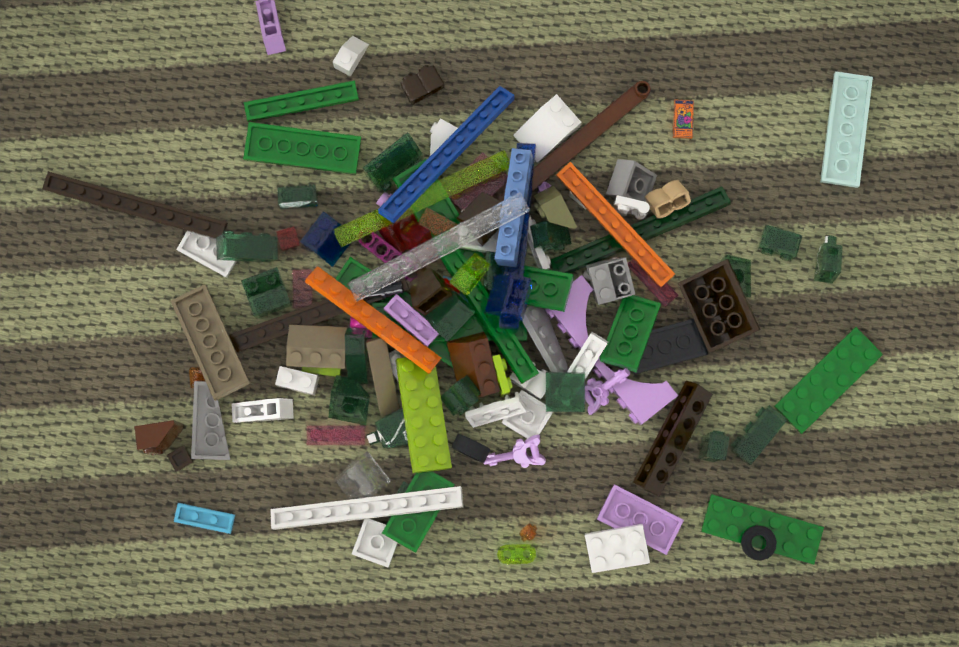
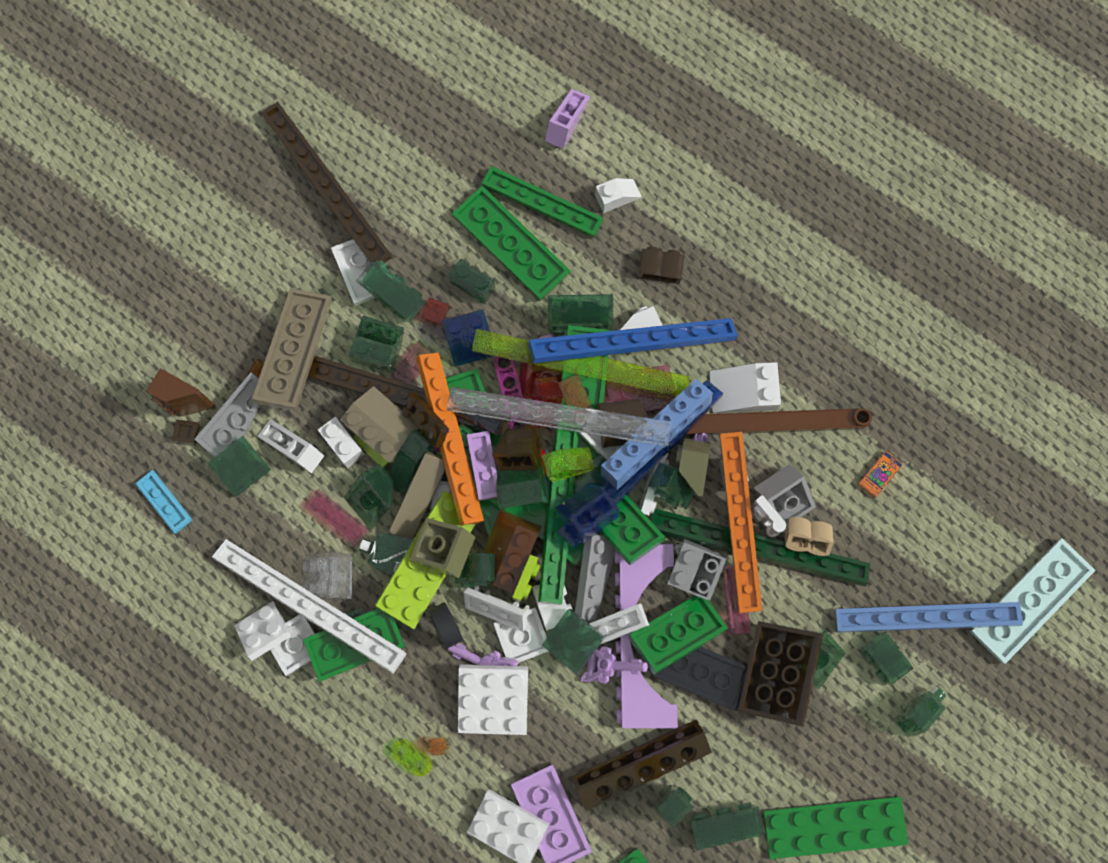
camera: 40 degrees right, 5 degrees down
(238, 452) = (239, 466): none -> clear green plate
(346, 319) = (425, 419): none -> dark brown plate
(348, 550) = (262, 630): none -> white plate
(428, 397) = (442, 547): none -> olive slope
(541, 472) = (493, 699): none -> white plate
(786, 193) = (928, 617): none -> medium blue plate

